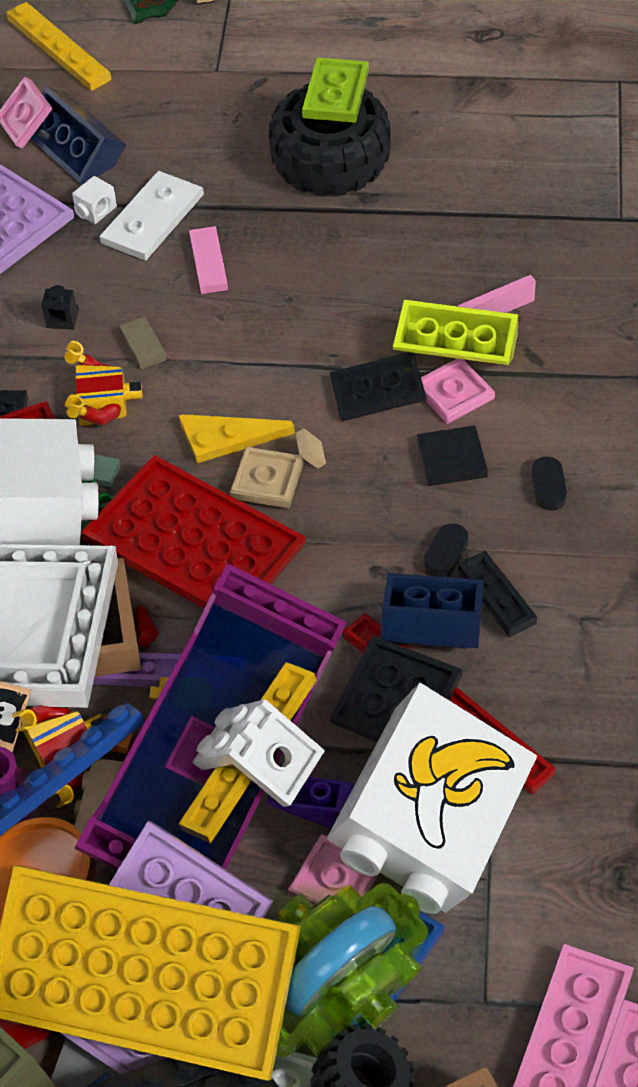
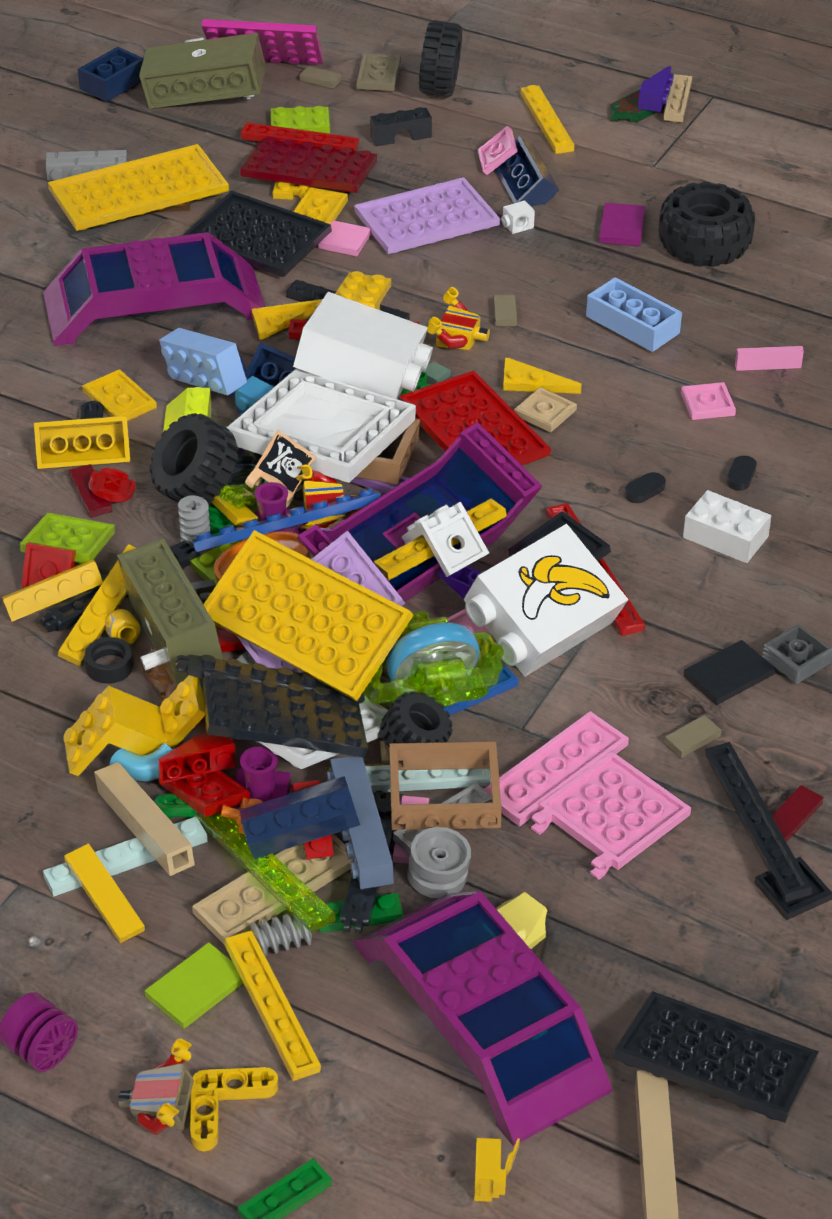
camera: 20 degrees right, 10 degrees down
(59, 300) = (458, 267): black brick -> none
(145, 627) = (414, 466): red bar -> none
(151, 215) = (554, 239): white plate -> none
(208, 260) = (579, 276): bright pink tile -> none
(222, 166) = (622, 224): none -> magenta tile
(307, 297) = (633, 314): none -> light blue brick
(310, 448) = (584, 402): tan tile -> none
(335, 90) = (721, 188): lime plate -> none
(378, 386) = (654, 381): black tile -> none
(432, 610) = (611, 510): dark blue brick -> none
(452, 455) = (682, 437): black tile -> none
(456, 332) = (728, 363): neon yellow slope -> none
(499, 594) = (664, 520): black plate -> none
(579, 576) = (727, 526): none -> white brick

